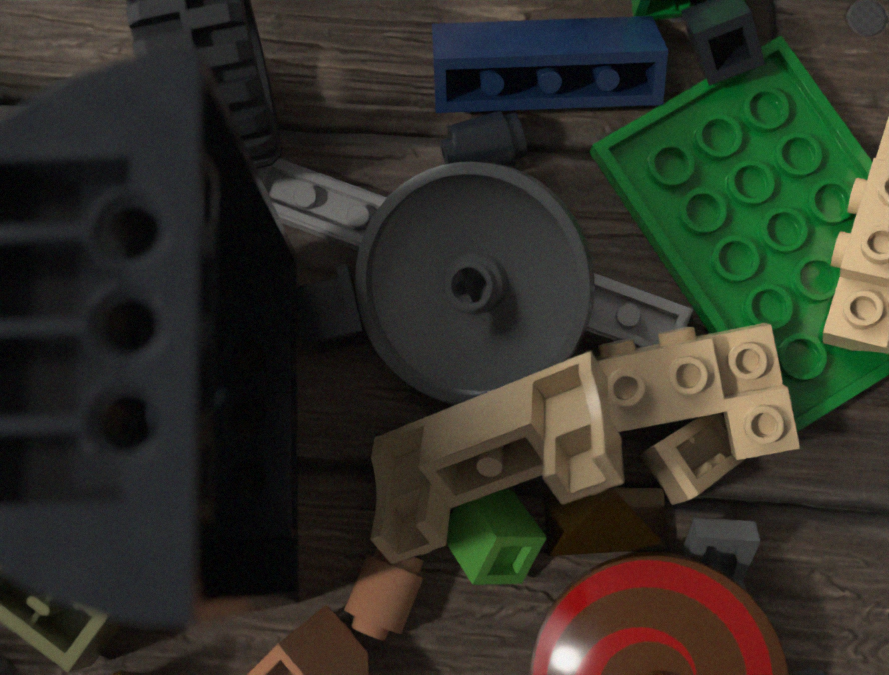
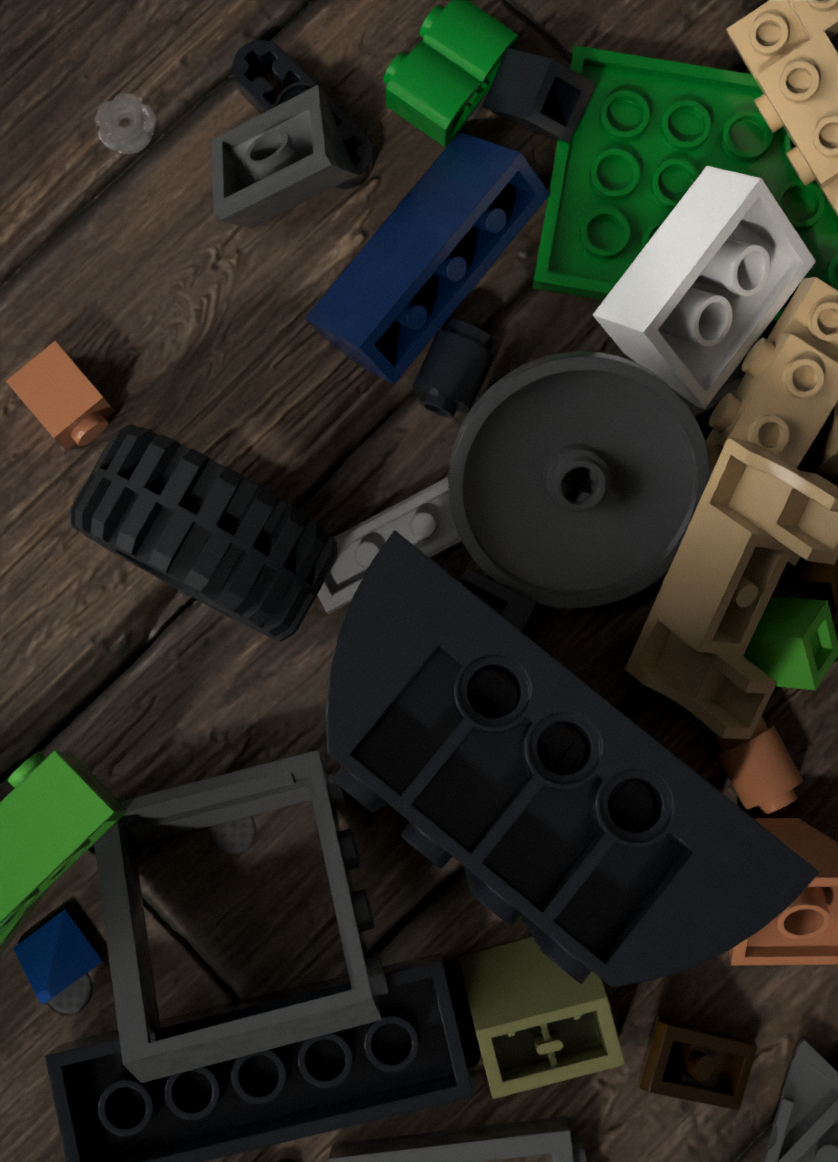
camera: 45 degrees left, 5 degrees up
(696, 256) = (707, 284): none -> white slope

